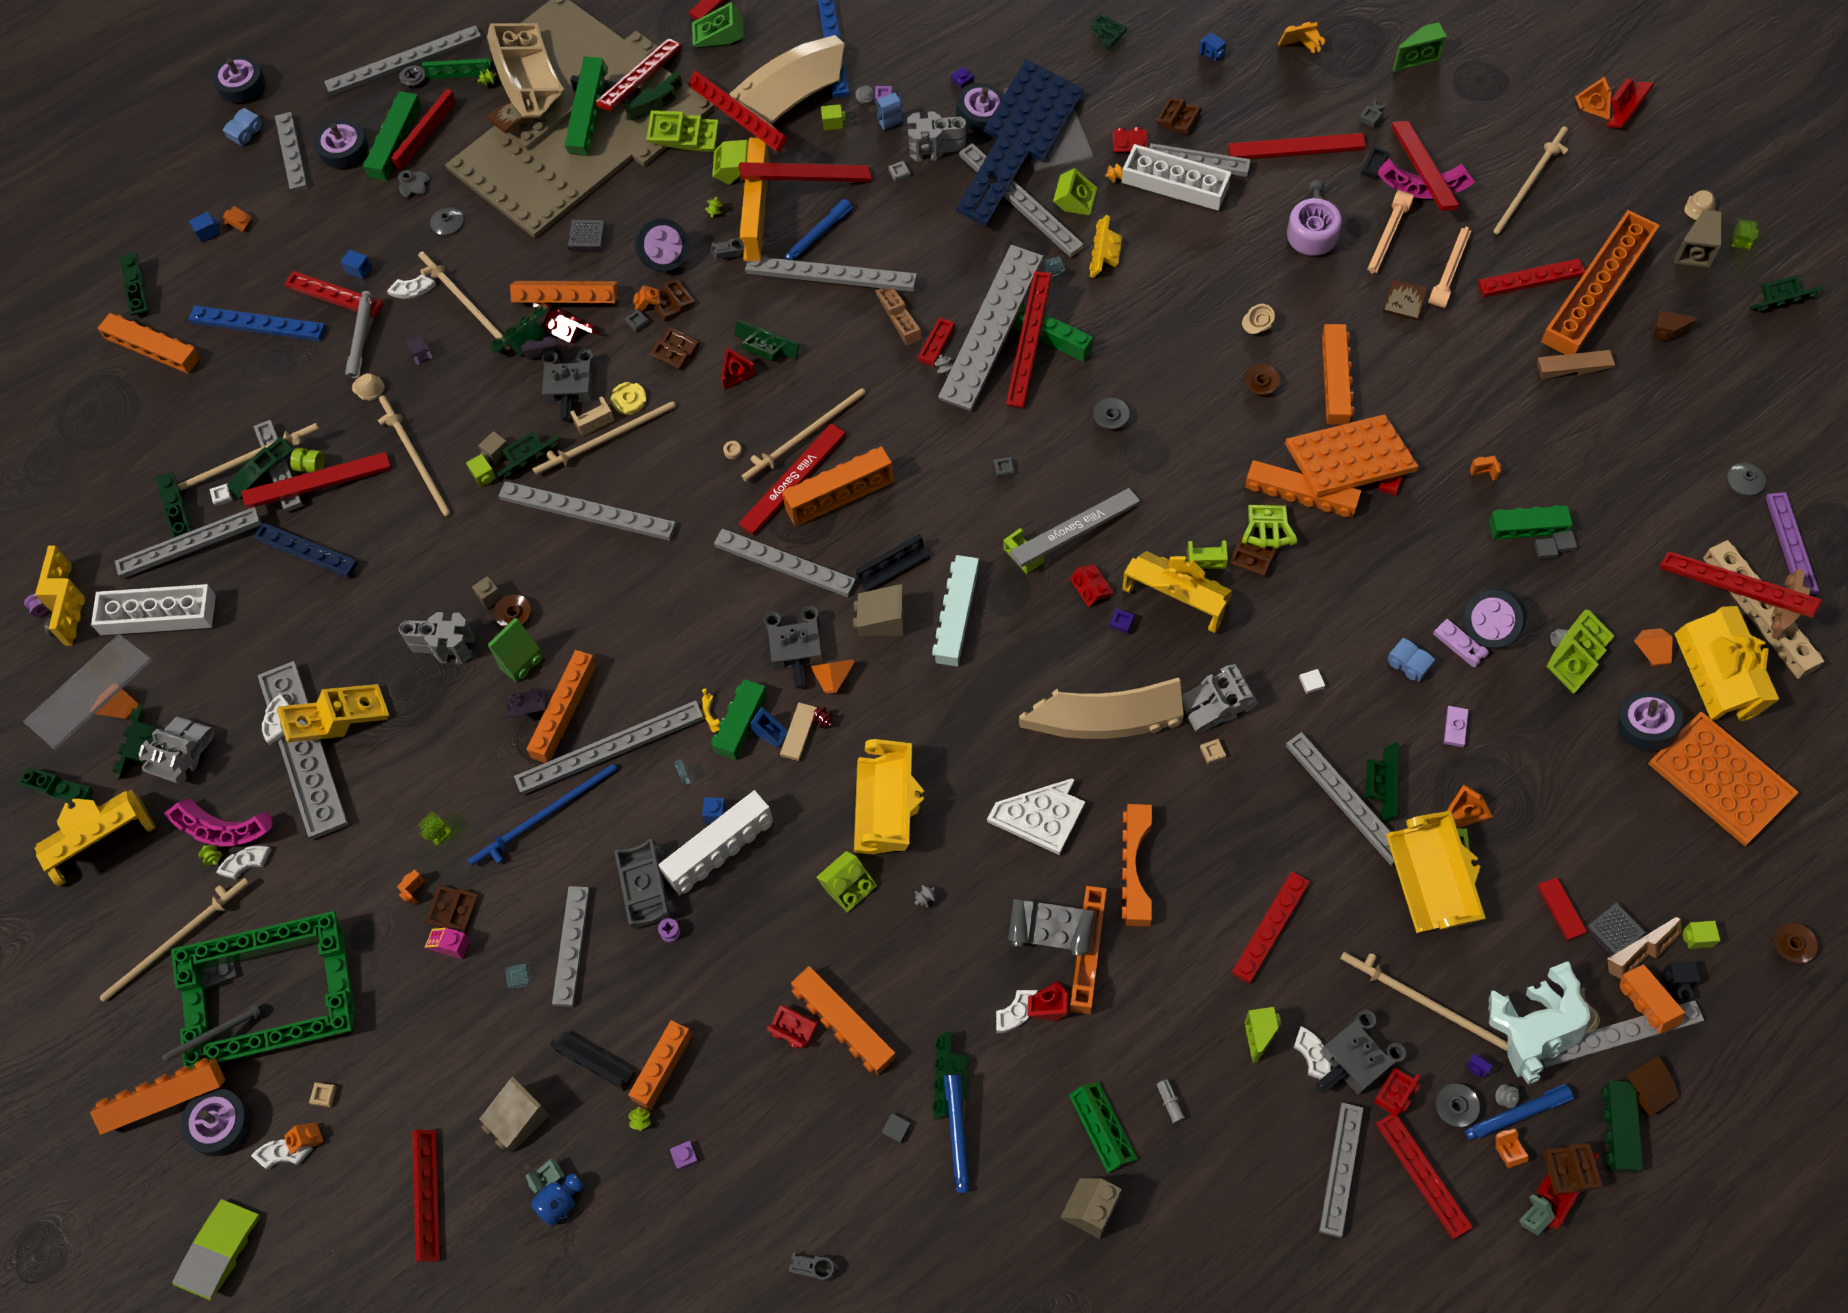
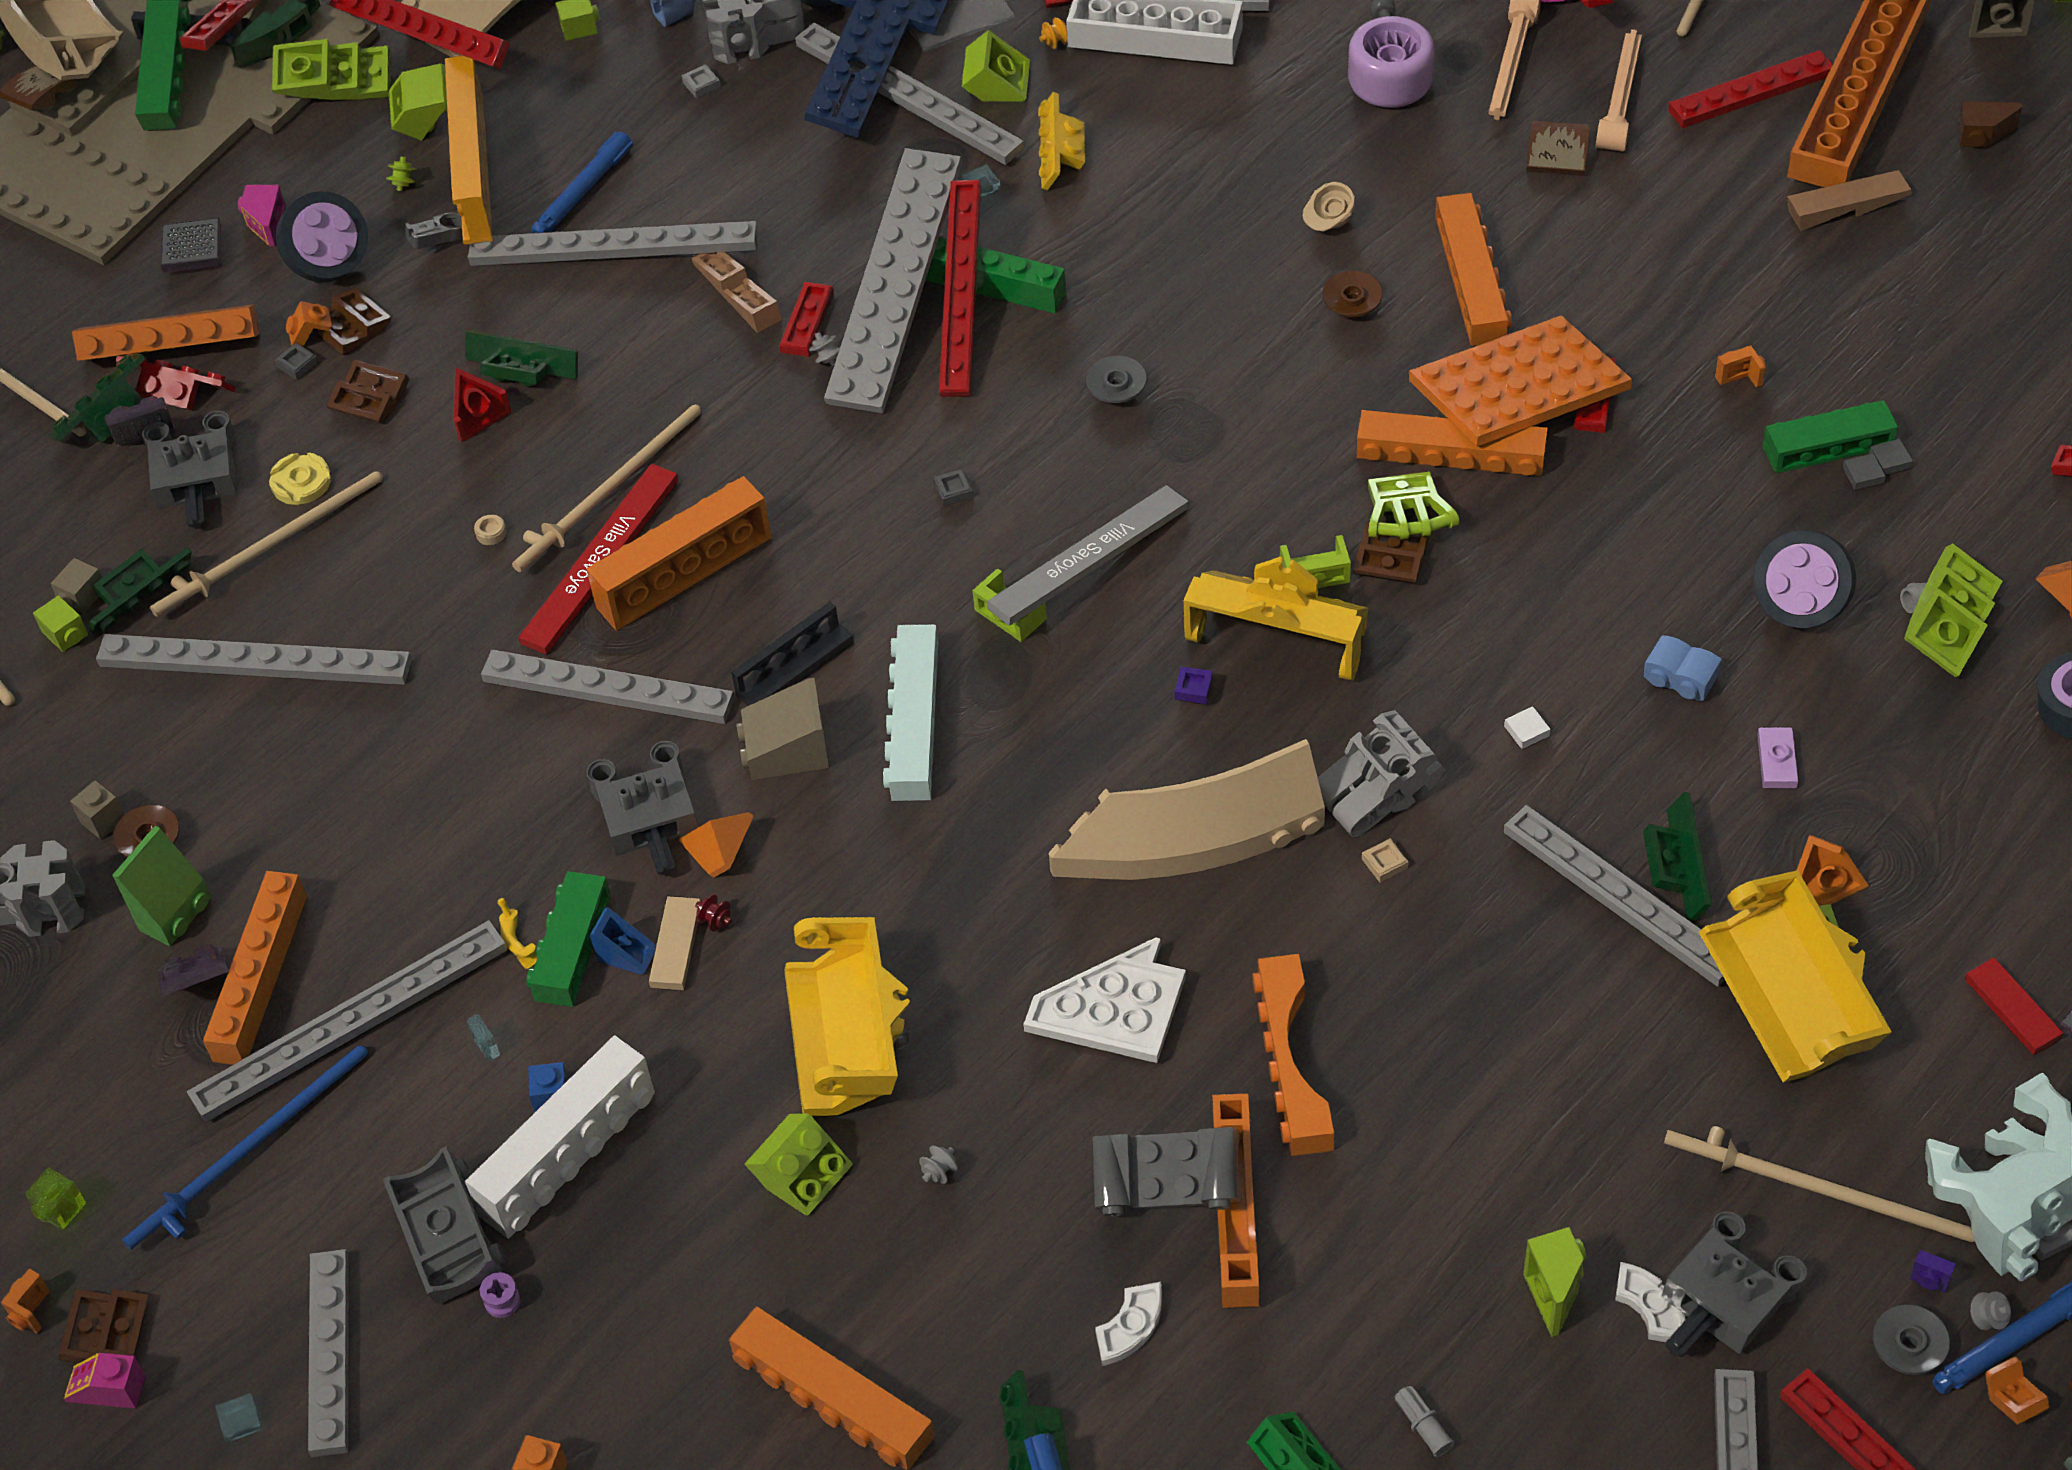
camera: 10 degrees left, 10 degrees down
(593, 419) = (244, 518): tan panel -> none
(630, 218) = (262, 210): none -> dark pink slope
(792, 1027) = (744, 1413): red bracket -> none
(804, 172) = (544, 97): red tile -> none
(1049, 1003) = (1185, 1299): red slope -> none
(1091, 584) = (1131, 638): red bracket -> none
(1270, 927) = (1536, 1117): red plate -> none
(1396, 1091) = (1804, 1335): red bracket -> none
(1460, 643) = (1757, 632): lavender plate -> none

